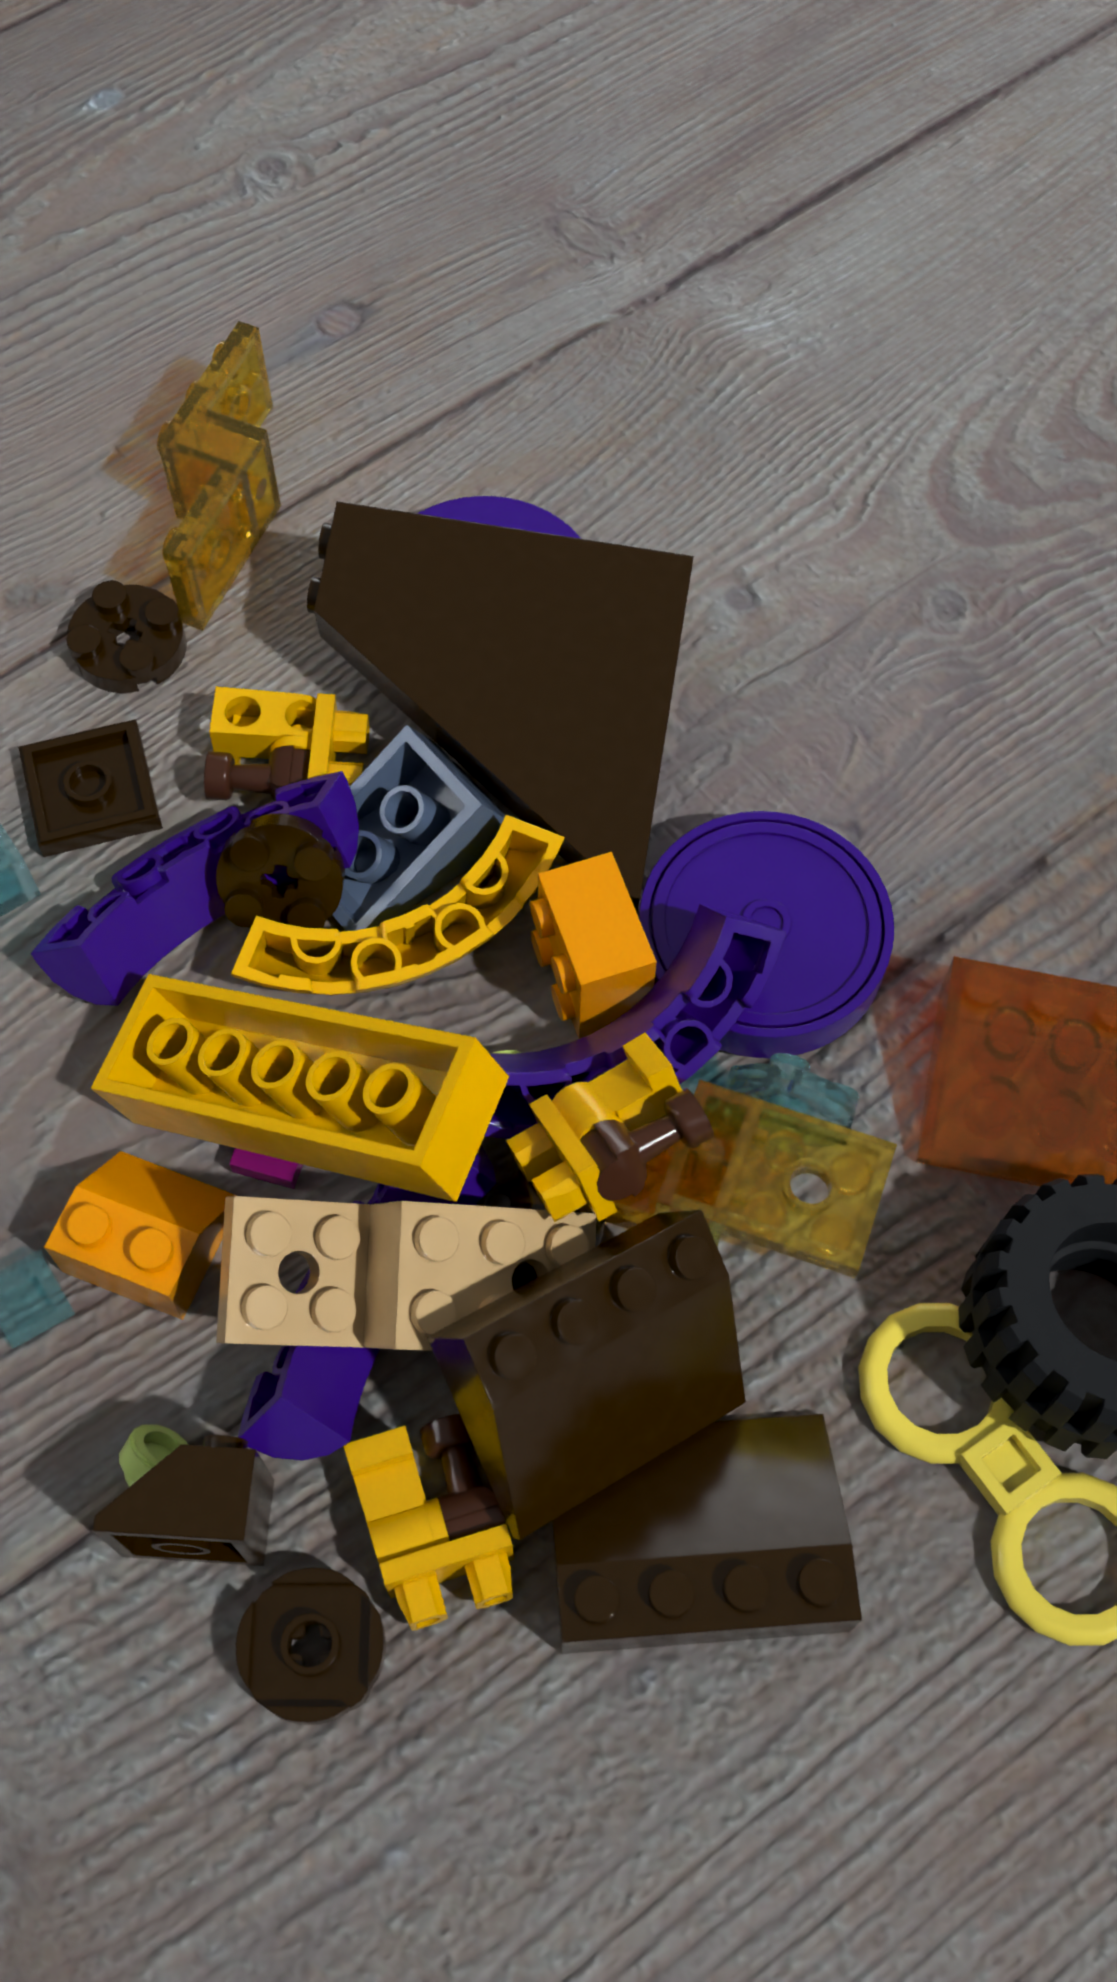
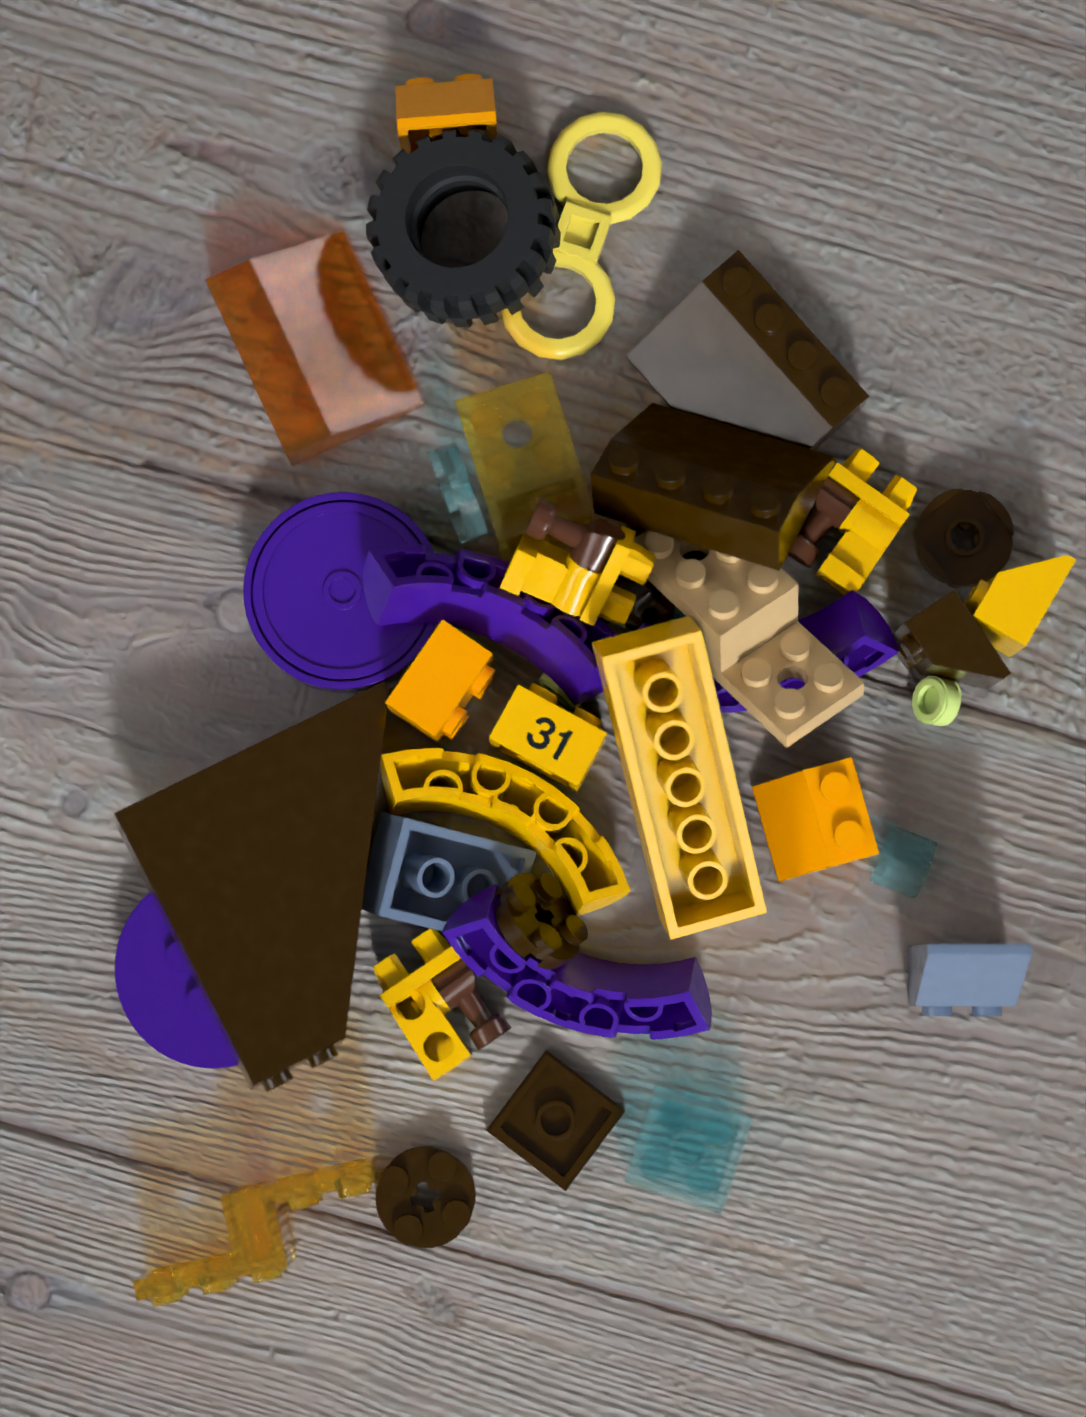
camera: 125 degrees left, 20 degrees up
(179, 1630) = (1016, 601): none -> yellow slope
(460, 989) = (548, 736): none -> yellow brick

